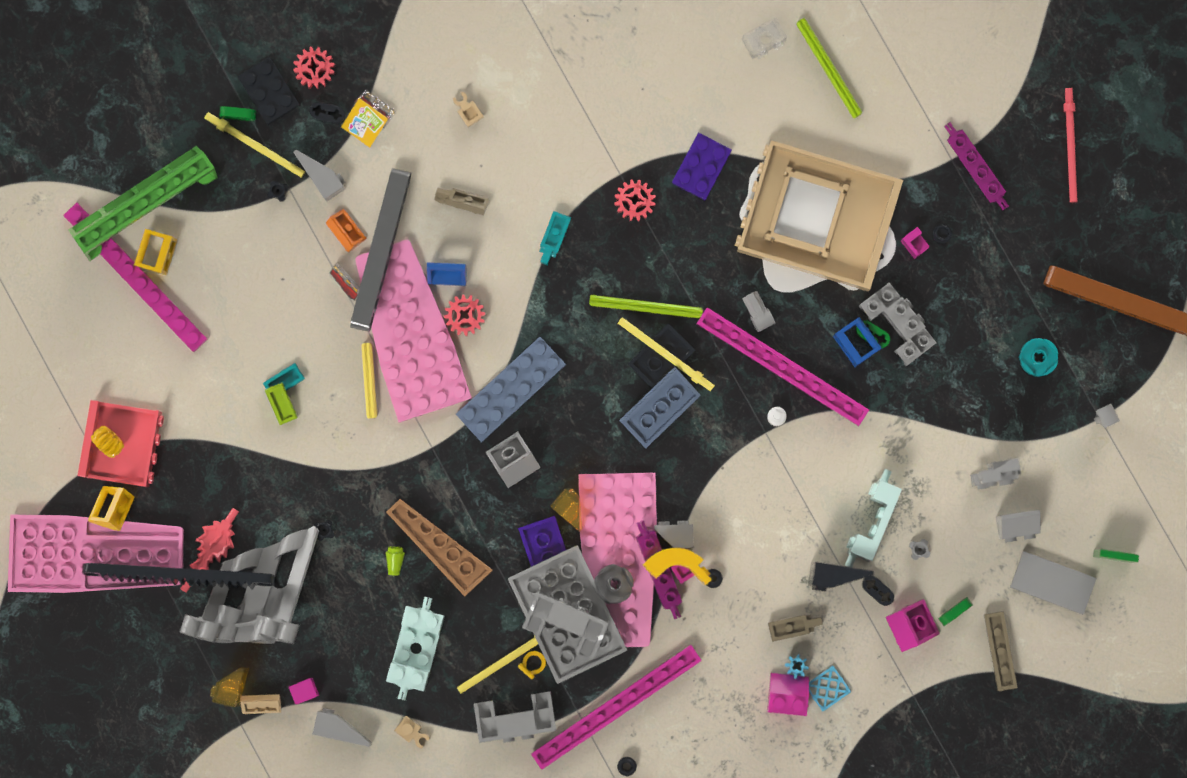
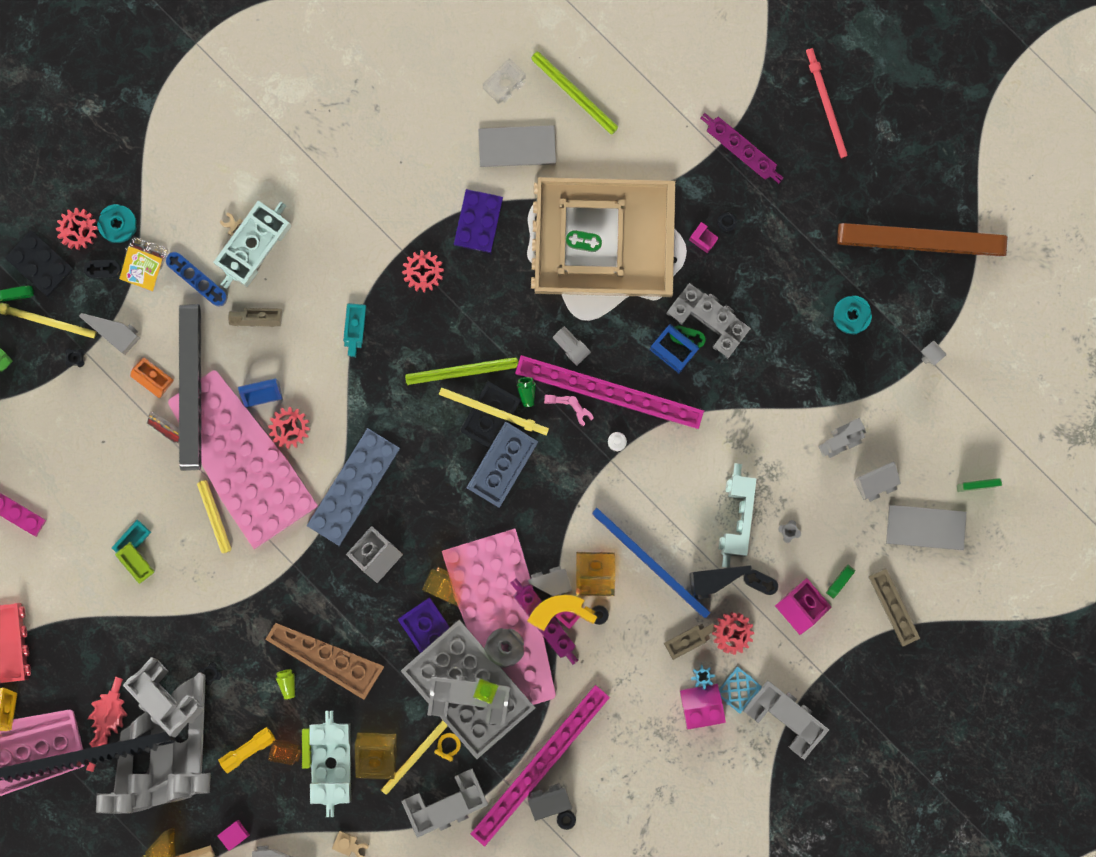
camera: 20 degrees left, 0 degrees up
(267, 544) = (158, 702): none -> light grey bracket
(351, 609) = (236, 757): none -> yellow axle
(362, 79) = (115, 234): none -> teal plate
(374, 625) = (284, 752): none -> clear orange slope
(395, 632) = (306, 748): none -> lime tile
(417, 146) = (196, 279): none -> blue beam
(460, 139) = (242, 262): none -> light aqua brick
(461, 653) = (375, 755): none -> clear yellow slope
(584, 620) = (485, 691): none -> clear neon green plate
(615, 745) = (549, 802): none -> dark grey slope
(703, 343) = (526, 389): none -> green cone
(720, 538) = (595, 574): none -> clear yellow slope
(749, 378) = (553, 399): none -> bright pink piece
(759, 104) = (517, 146): none -> light grey tile
(776, 542) = (650, 563): none -> blue tile
(795, 217) = (582, 245): none -> green beam
(831, 627) = (725, 631): none -> coral gear
(871, 725) = (797, 718): none -> light grey bracket

